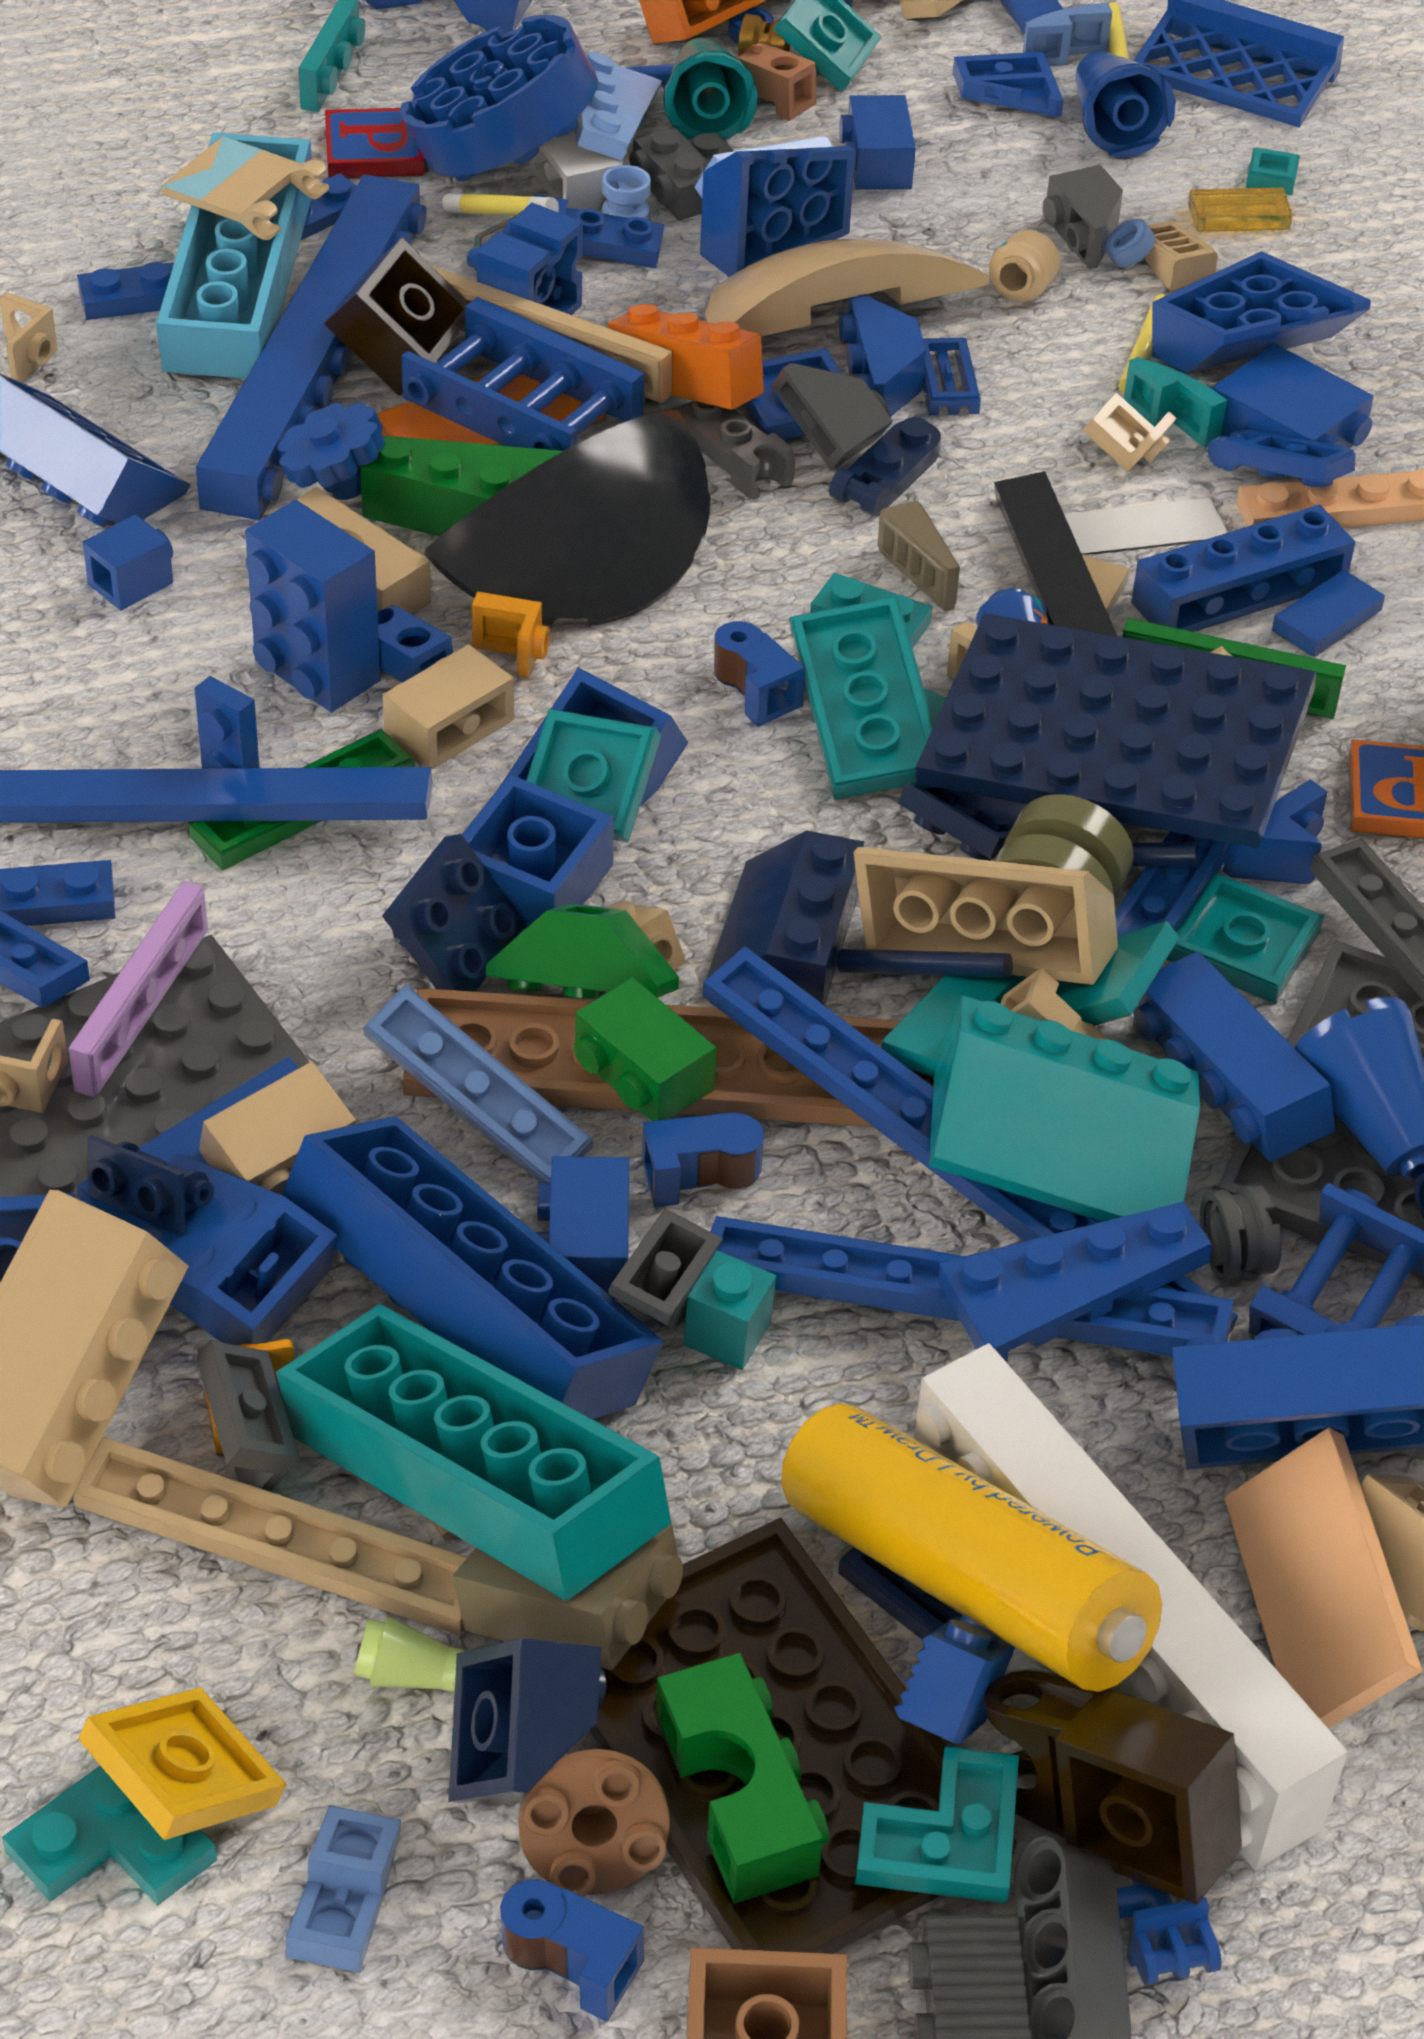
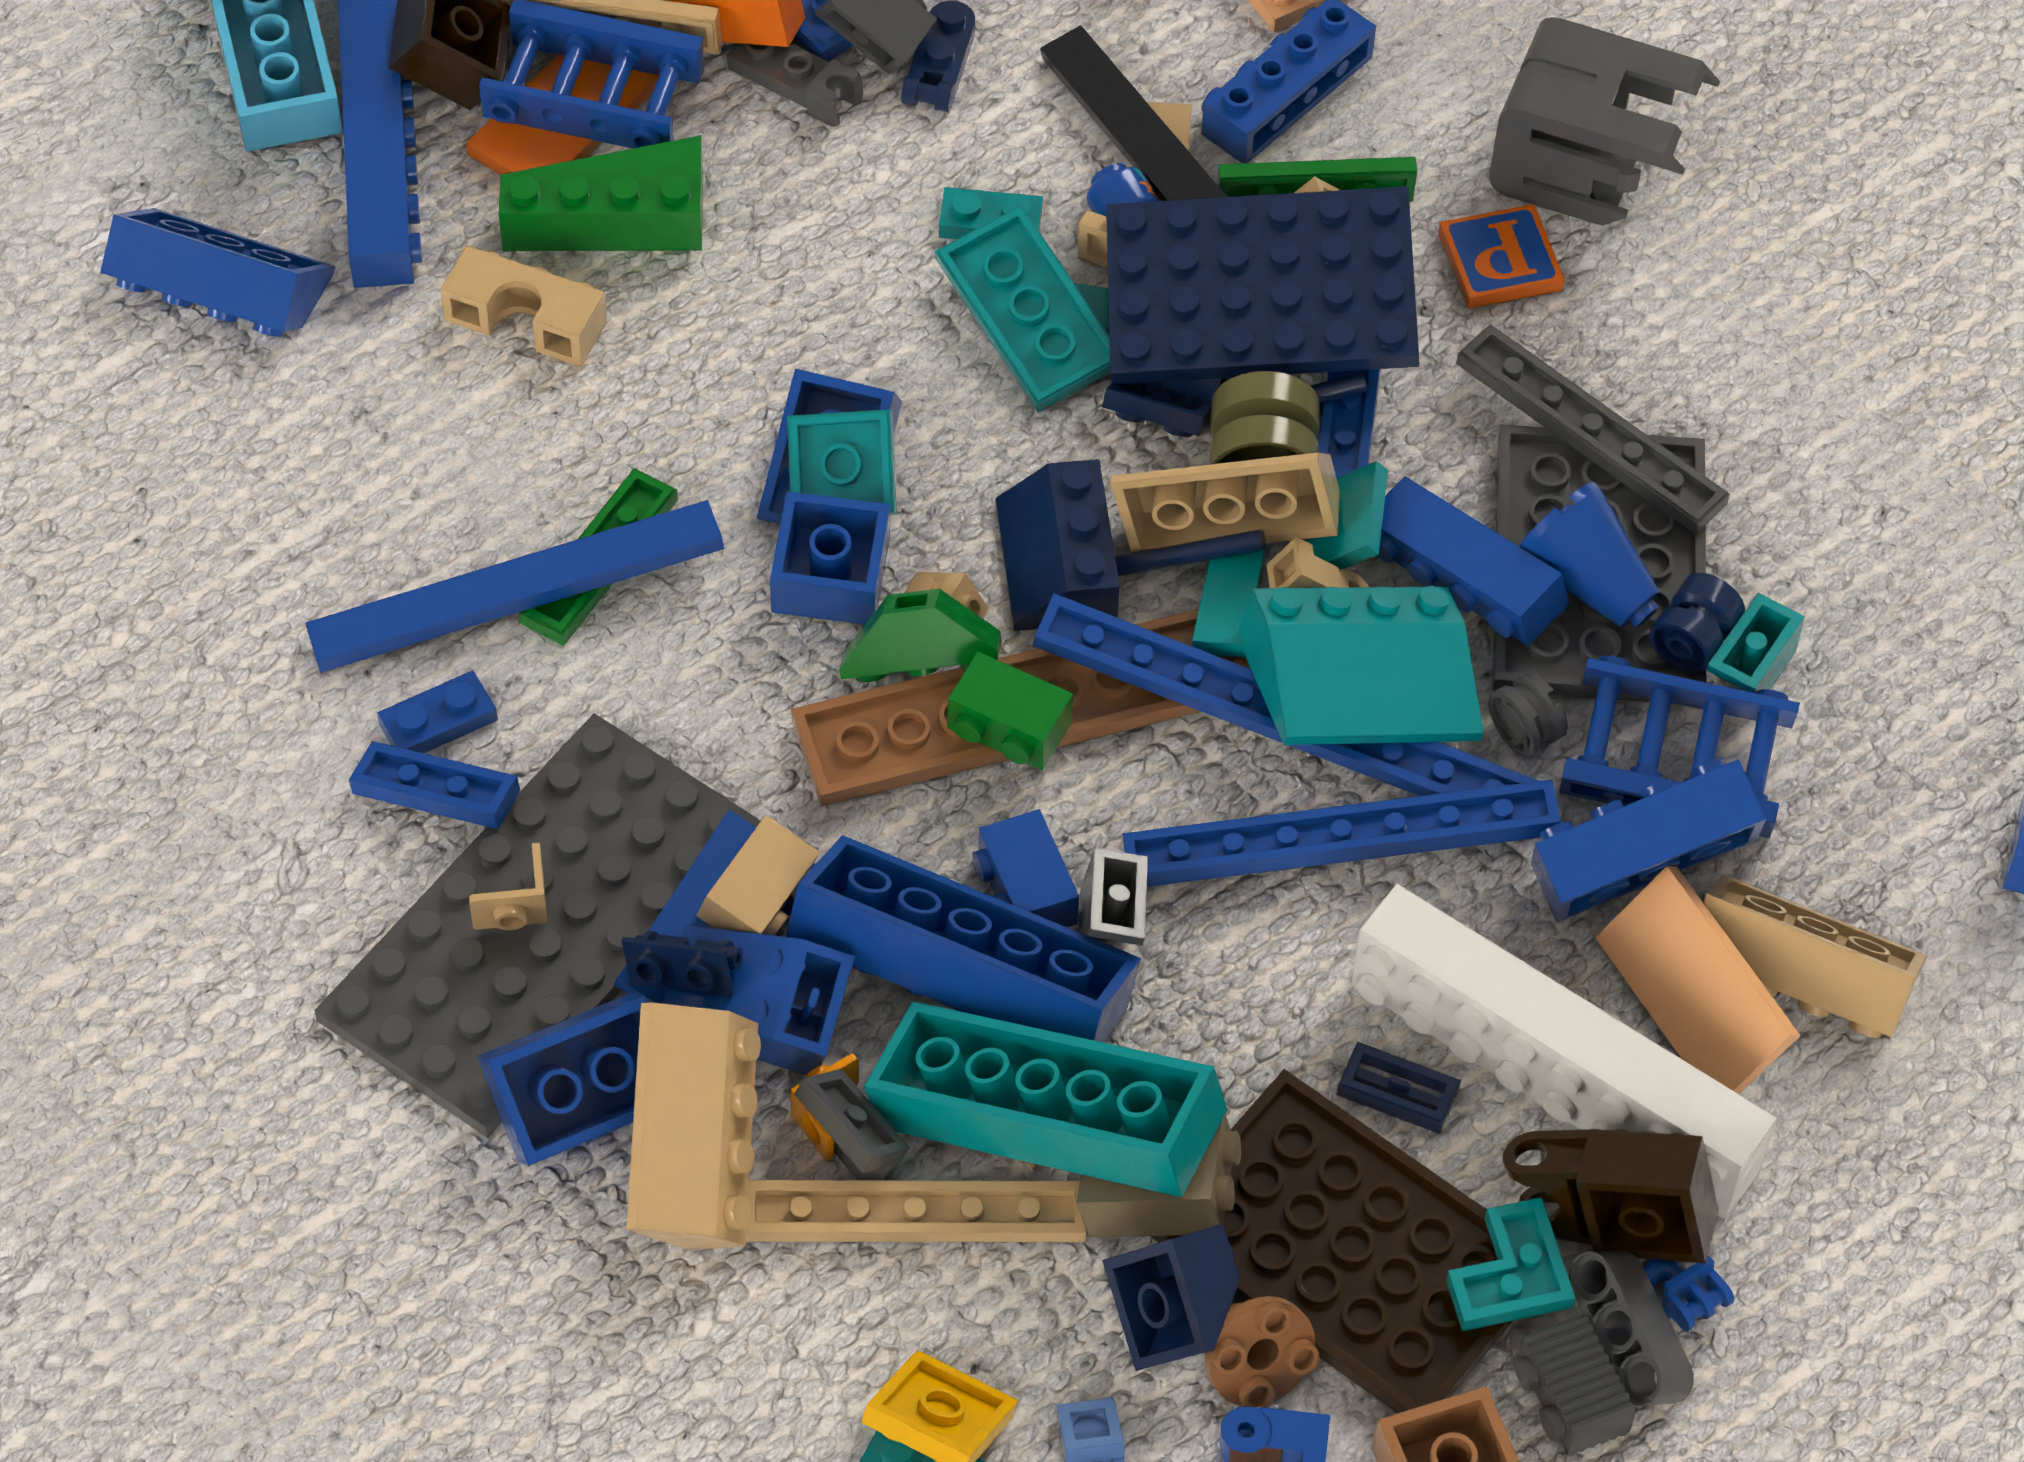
camera: 20 degrees left, 10 degrees up
(33, 343) = (121, 157): tan bracket -> none
(124, 290) = (169, 70): blue plate -> none
(128, 562) = (331, 369): blue brick -> none
(138, 989) = (577, 788): lavender tile -> none
(226, 726) = (520, 520): blue plate -> none
(313, 605) = (538, 376): blue brick -> none
(332, 448) = (463, 199): blue plant -> none
(405, 1657) = (1056, 1274): yellowish green cone -> none
(409, 643) = (618, 384): blue leg -> none
(449, 706) = (682, 429): tan brick -> none
(453, 917) = (795, 638): dark blue plate -> none
(475, 1084) = (885, 783): medium blue tile -> none
(510, 628) = (698, 331): light orange bracket -> none
(591, 527) = (730, 216): black brick -> none
(700, 1153) = (1082, 782): blue leg -> none
(723, 1722) = (1322, 1244): green arch -> none
(729, 1310) = (1171, 911): teal brick -> none
(758, 670) = (925, 308): blue leg -> none
(919, 552) = (1010, 144): dark tan slope -> none
(952, 1677) = (1473, 1152): blue brick -> none
(973, 1546) = (1447, 1050): yellow piece -> none
(1045, 1282) = (1410, 811): blue wing -> none
(1145, 525) = (1183, 49): white sticker -> none
(1248, 936) = (1425, 438): teal tile -> none
(1287, 840) = (1436, 347): blue slope -> none
(1328, 612) = (1371, 96): blue tile -> none

